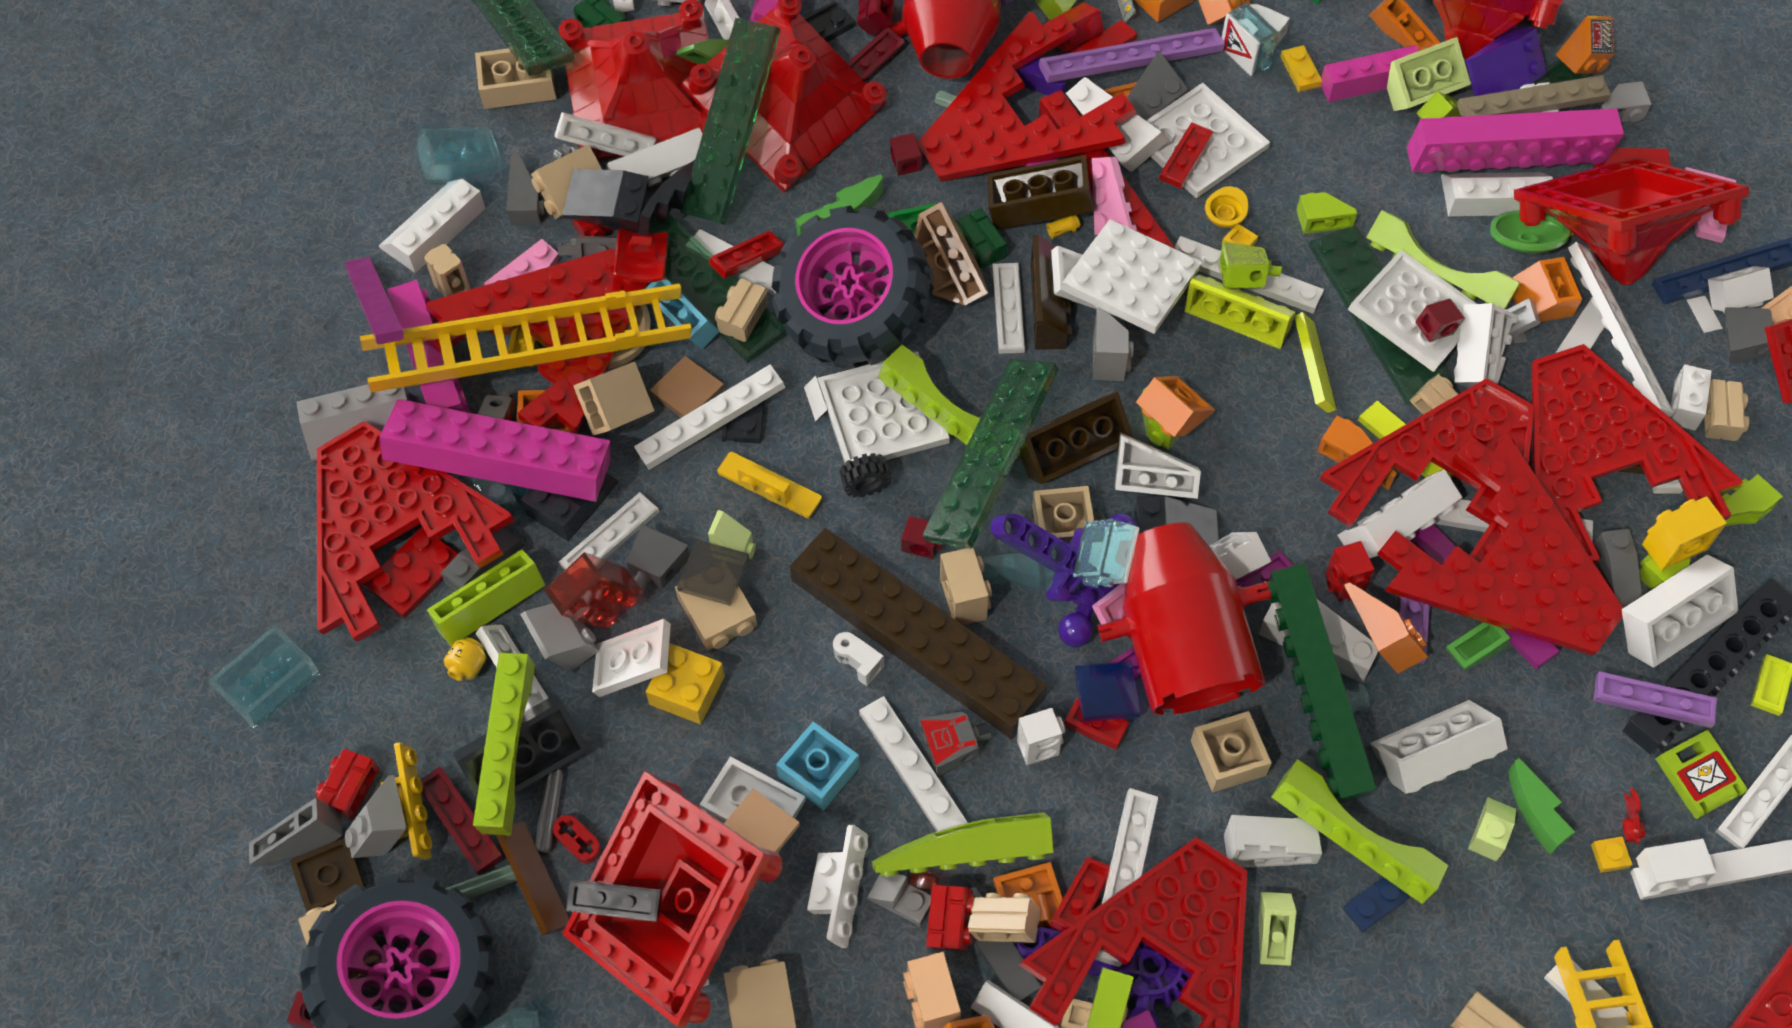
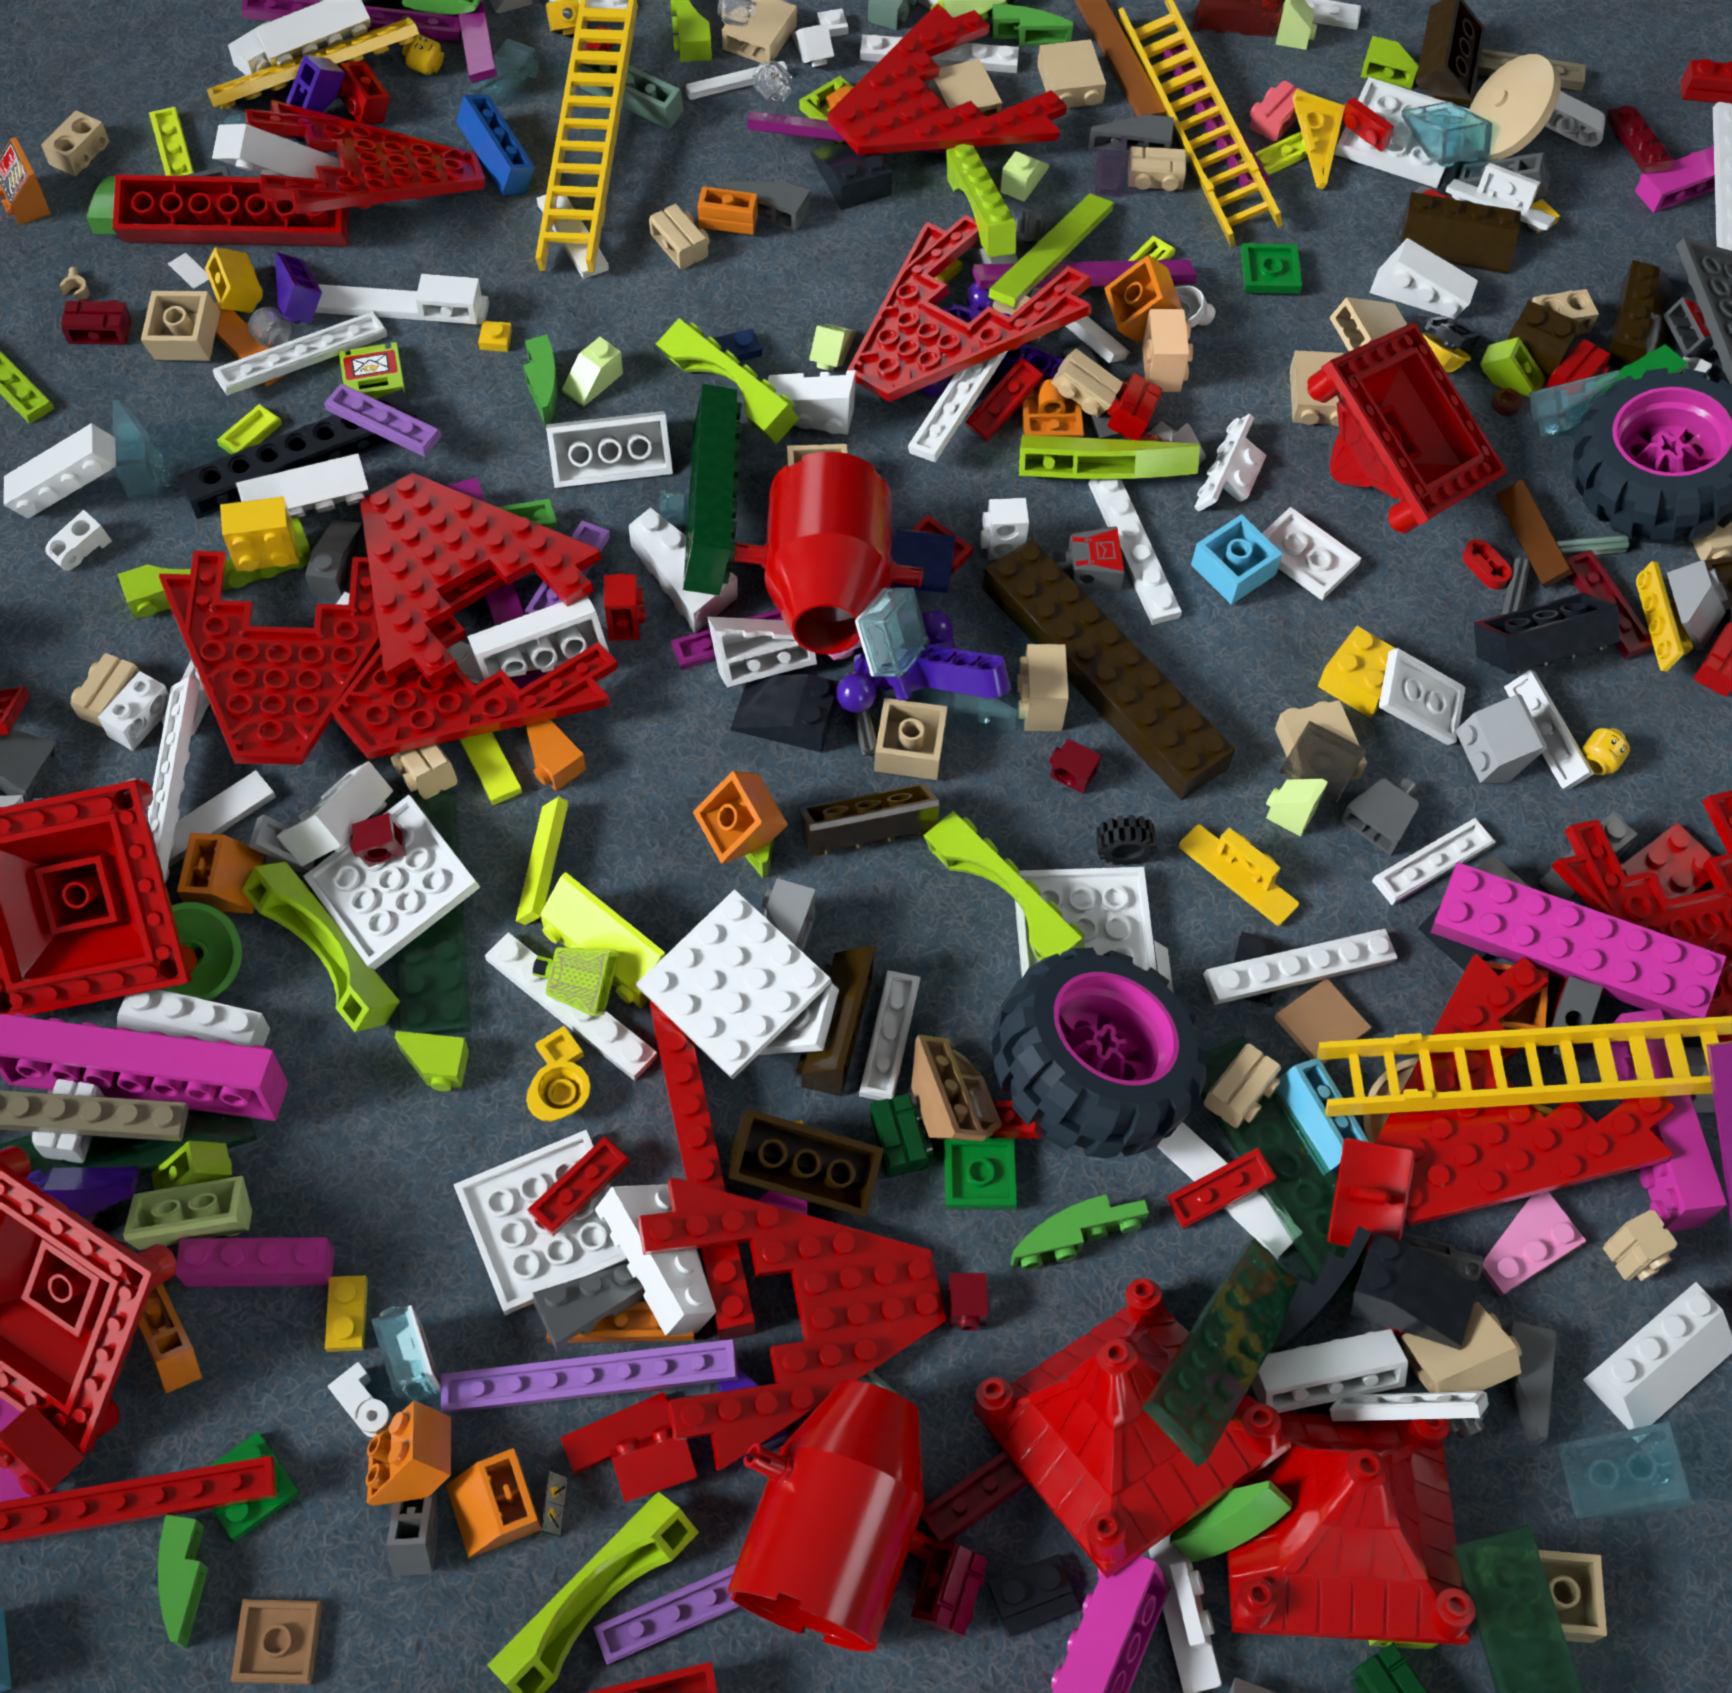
camera: 170 degrees left, 0 degrees up
(486, 597) = (1582, 806): lime brick -> none
(497, 781) = (1566, 632): lime arch -> none
(593, 591) = (1463, 754): clear red brick -> none
(613, 398) = (1422, 991): tan brick -> none
(614, 900) = (1461, 451): tile -> none
(762, 822) = (1306, 517): light nougat tile -> none
(858, 654) = (1172, 661): white leg -> none
(990, 453) = (976, 800): clear green plate -> none
(1108, 194) = (717, 1120): bright pink wing -> none
(1153, 471) = (789, 763): white wedge -> none
(1392, 635) = (615, 528): slope -> none
(1633, 826) = (463, 344): red plate -> none

